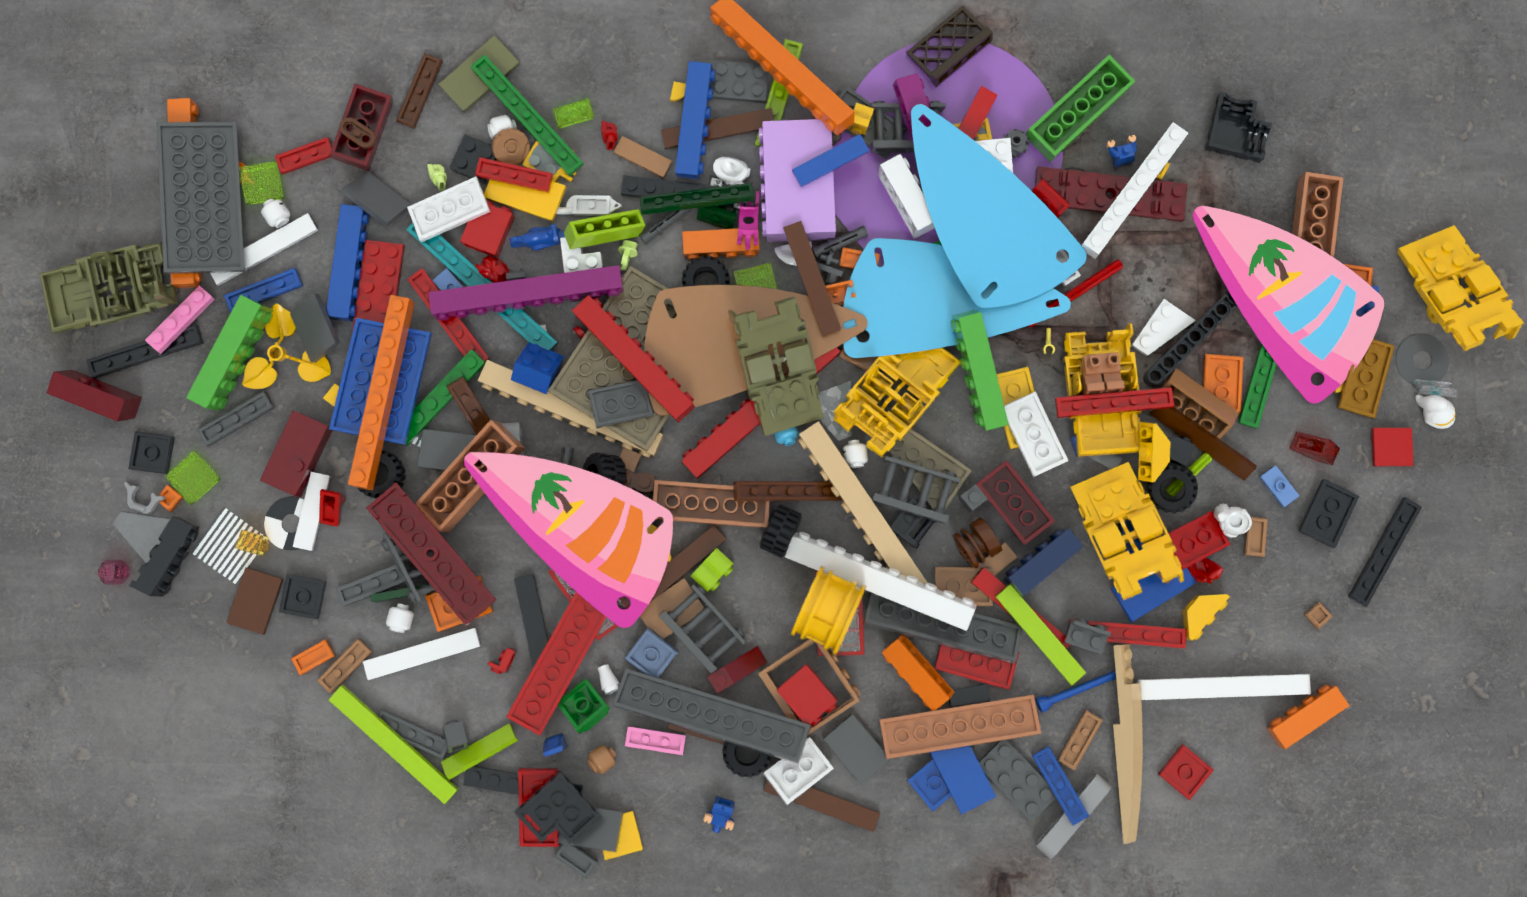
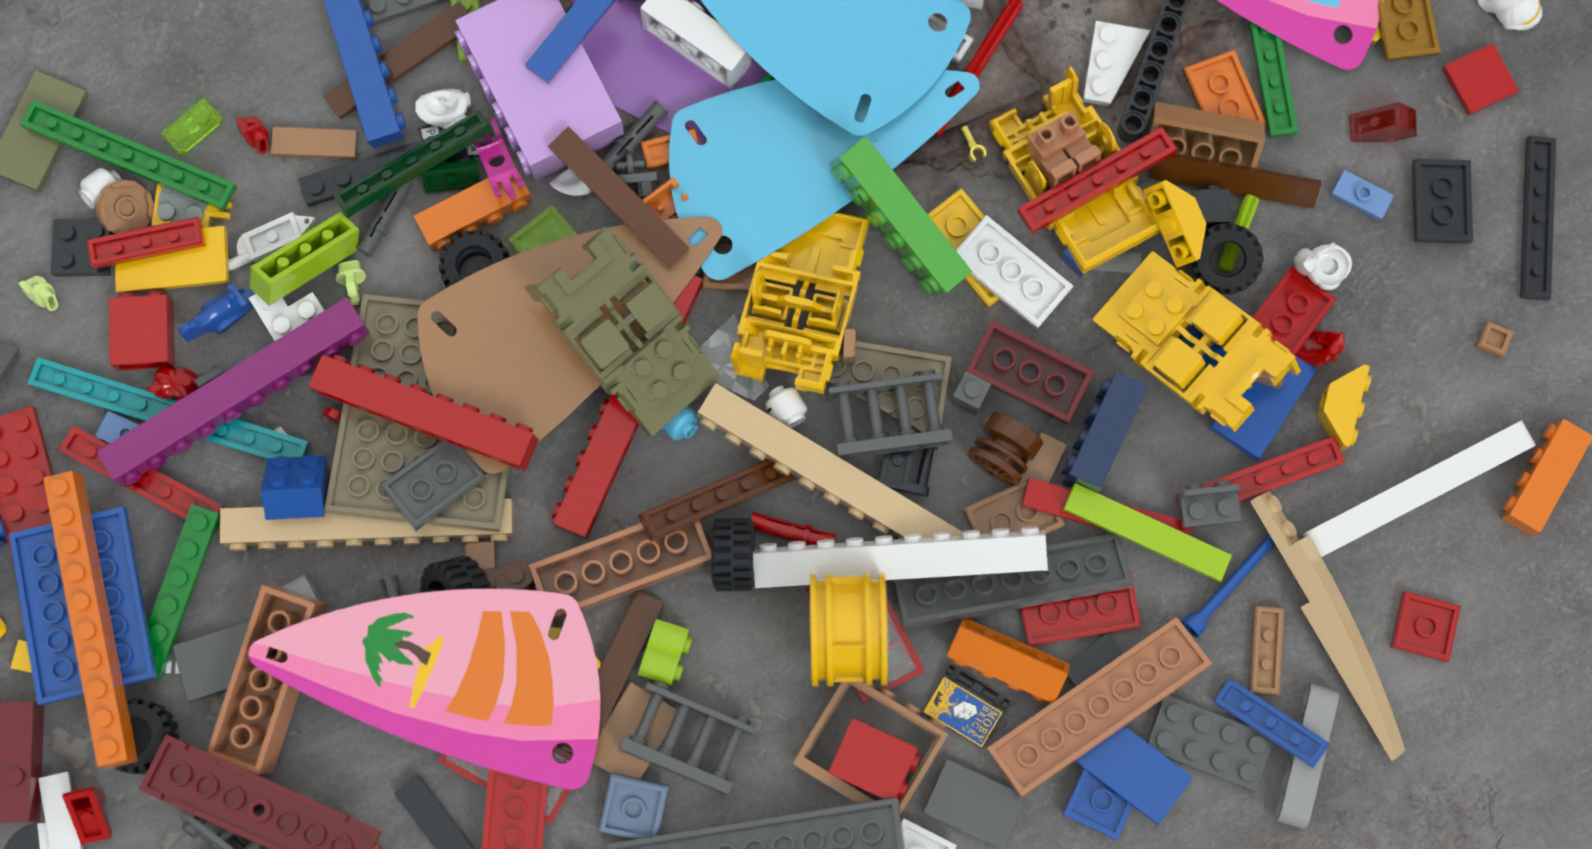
camera: 30 degrees left, 5 degrees down
(448, 209) = (75, 328): white tile -> none
(468, 404) = (221, 580): reddish brown tile -> none
(678, 91) = (323, 36): yellow tile -> none
(737, 669) = (761, 773): dark red slope -> none
(821, 530) = (788, 530): none -> red pin
(879, 687) = (965, 707): none -> piece
(911, 434) = (849, 346): none -> medium nougat tile
(1256, 538) = (1365, 276): medium nougat tile -> none

